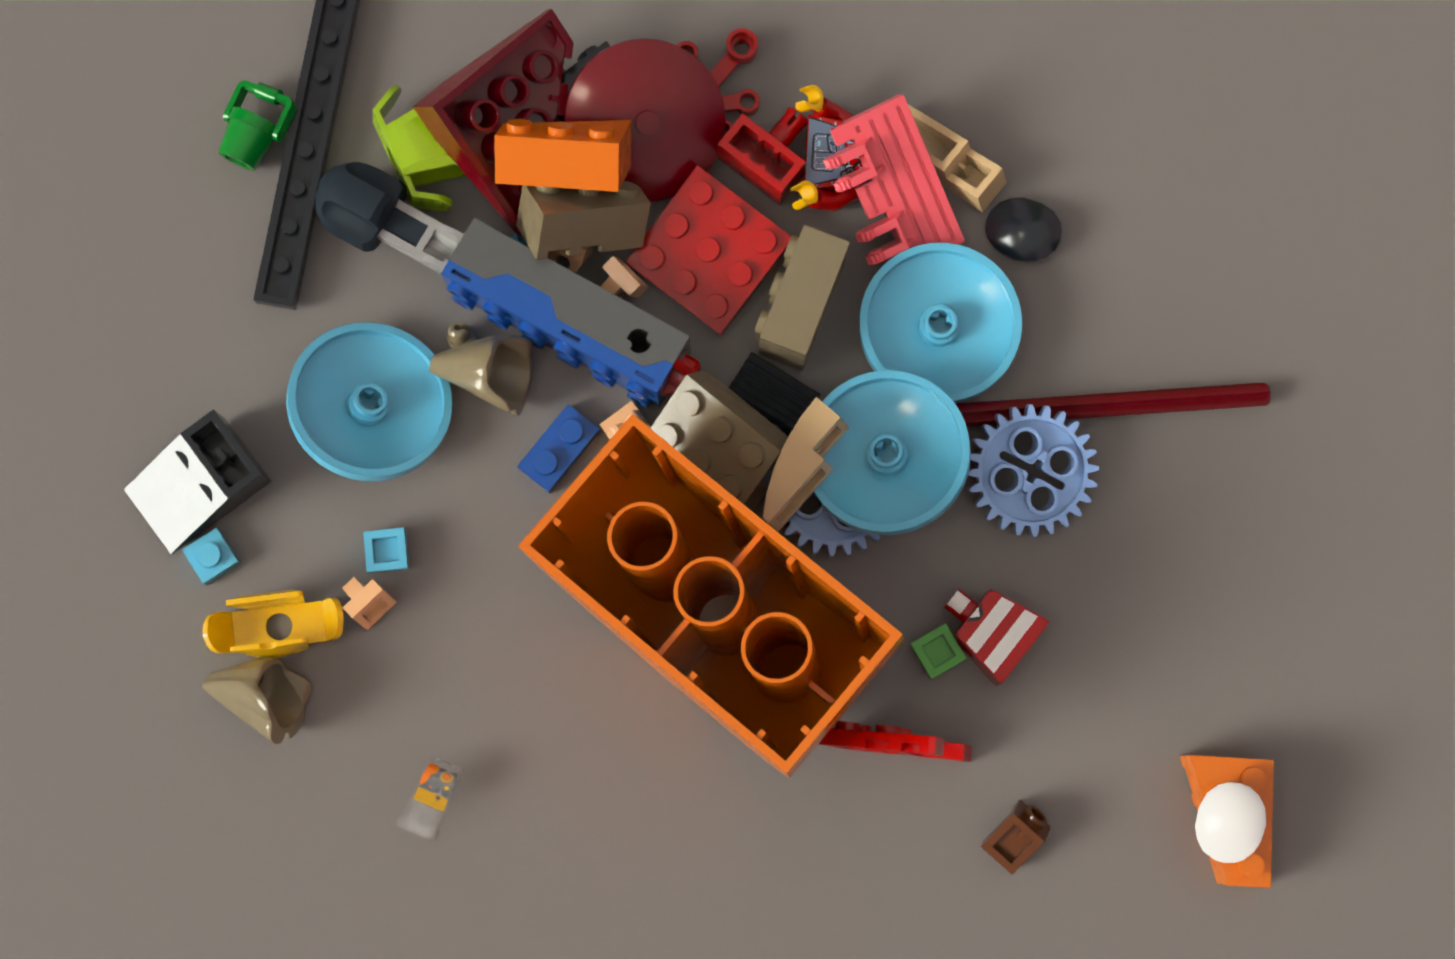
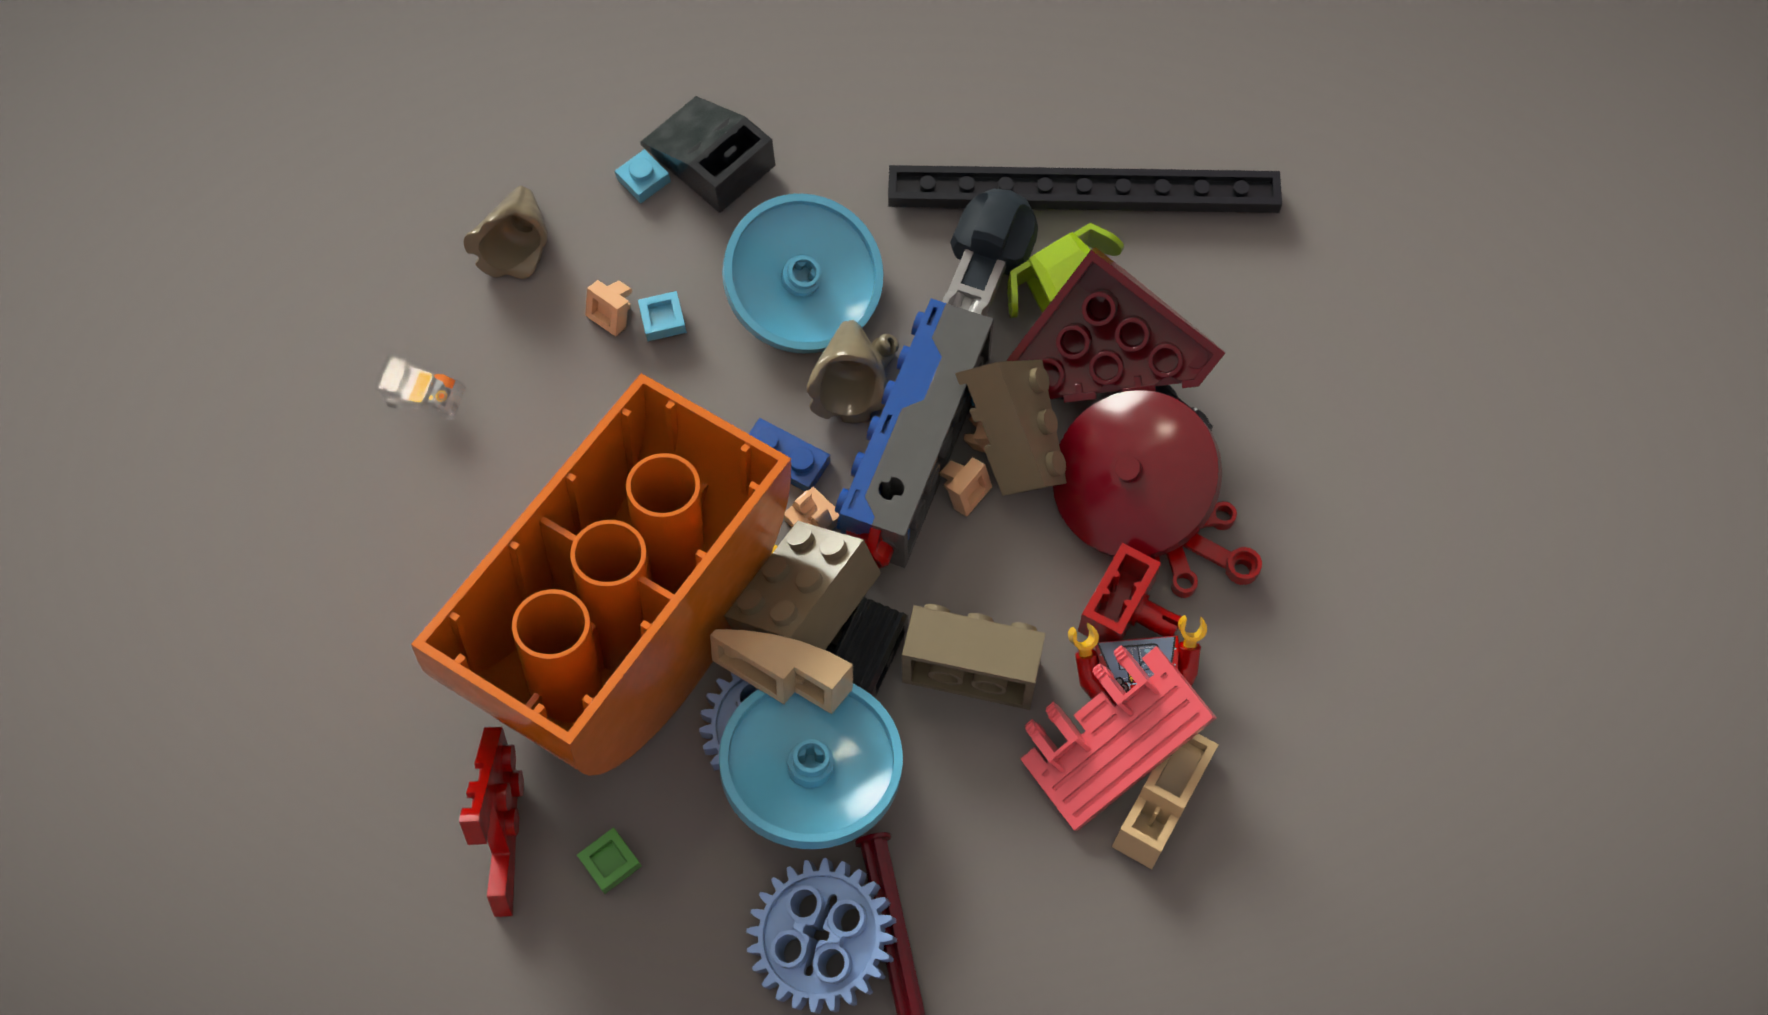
camera: 85 degrees right, 15 degrees down
(247, 629) = (578, 212): yellow piece -> none
(249, 134) = (1048, 136): green piece -> none
(564, 154) = (1073, 389): orange wedge -> none
(709, 250) = (1013, 562): red plate -> none
(942, 318) = (973, 811): medium azure dish -> none
(994, 631) = (635, 918): torso -> none
(1017, 836) = (412, 975): reddish brown bracket -> none
(1023, 229) = (1100, 894): black hat -> none

